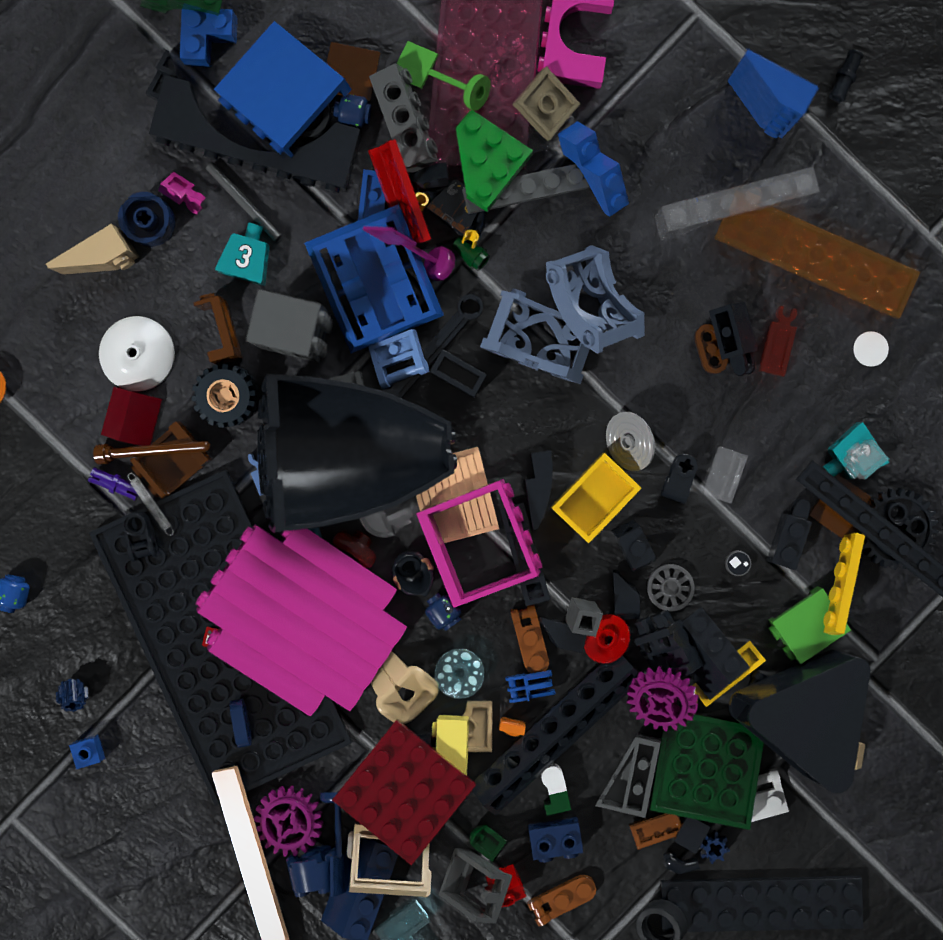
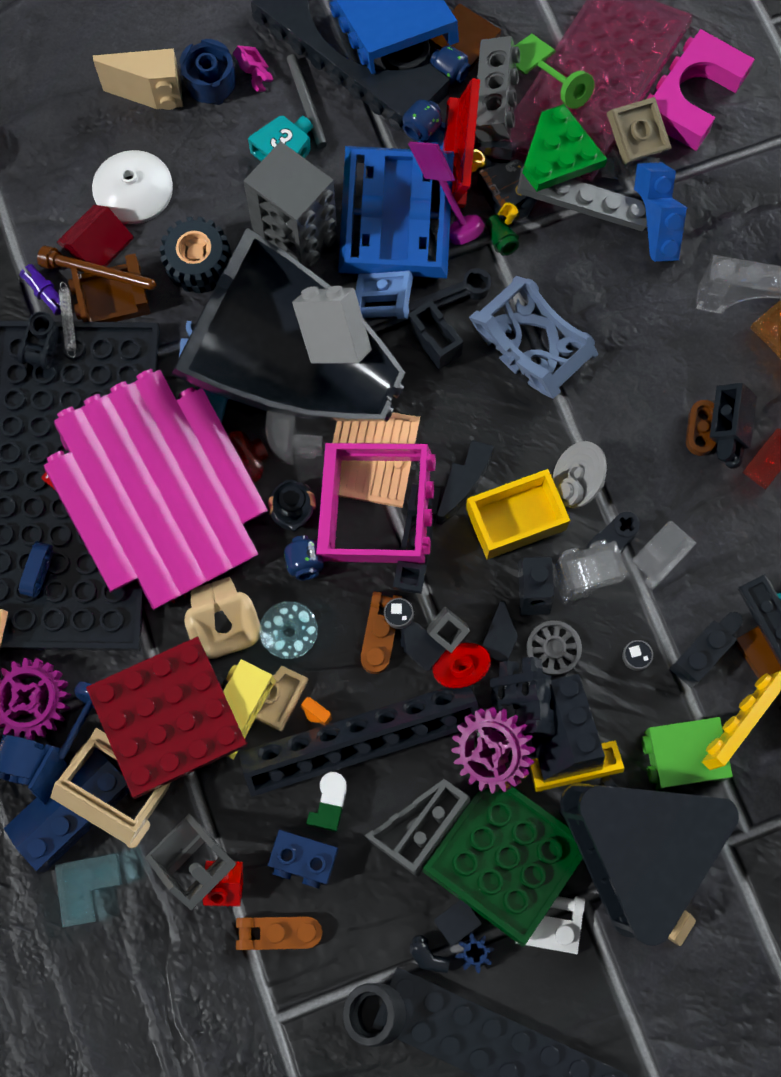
camera: 25 degrees right, 15 degrees down
(231, 349) = (224, 208): reddish brown panel -> none
(356, 183) = (422, 120): none -> dark blue head
(375, 416) = (332, 325): none -> light grey brick
(487, 842) = (227, 825): dark green plate -> none
(533, 685) = (357, 678): blue arm -> none
(539, 622) = (399, 613): none -> tile
(622, 317) = (615, 310): sand blue fence -> none
(630, 461) = (570, 491): none -> light grey plate
(655, 829) = (418, 901): dark orange plate -> none
(674, 521) = (584, 571): none -> clear brick

